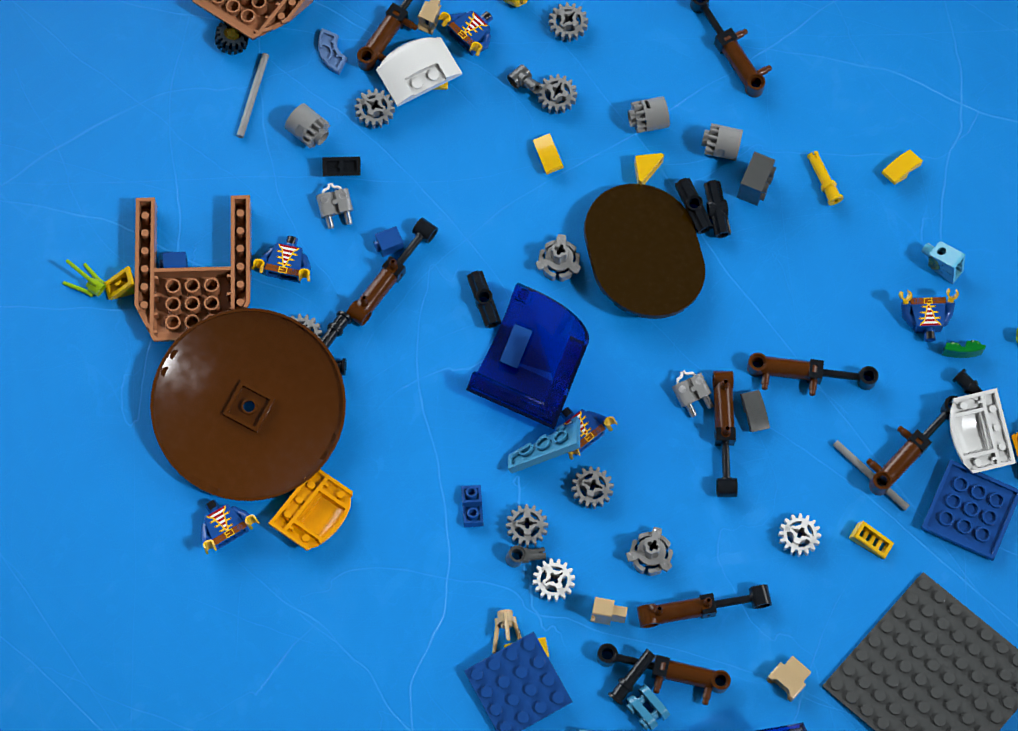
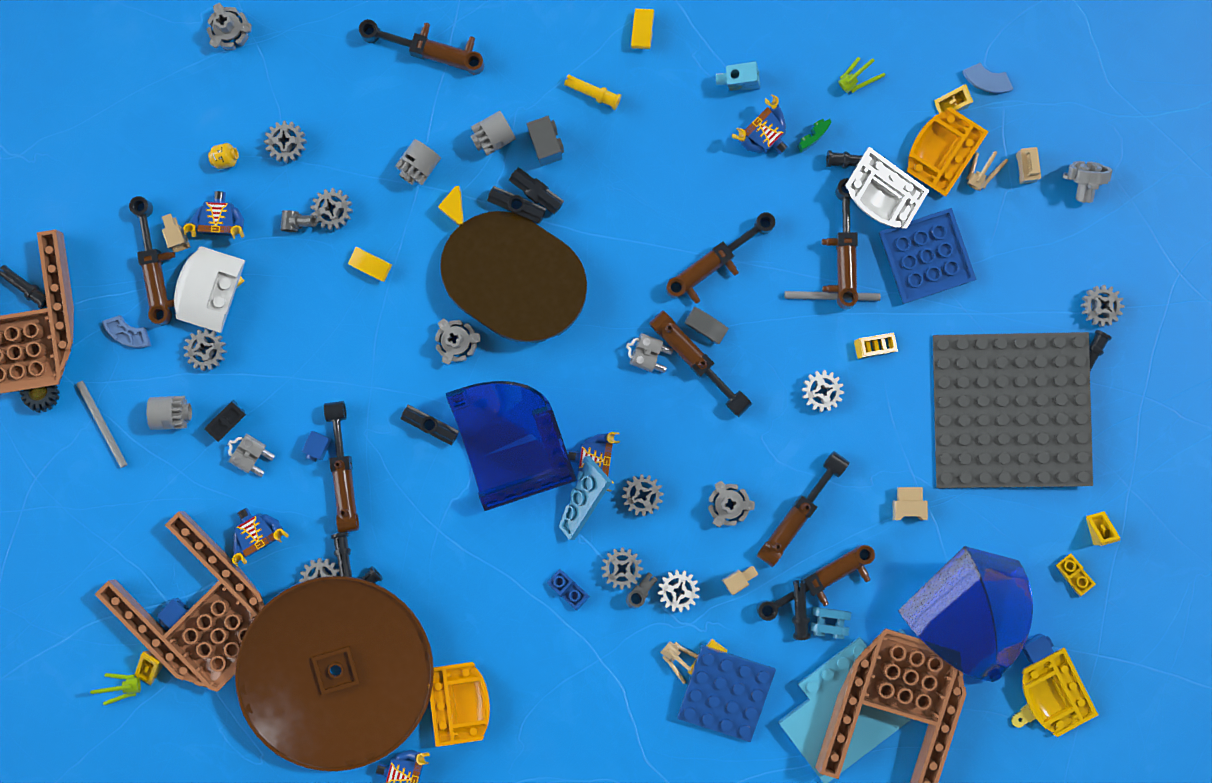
camera: 40 degrees left, 15 degrees up
(516, 345) = (488, 440): blue slope -> none

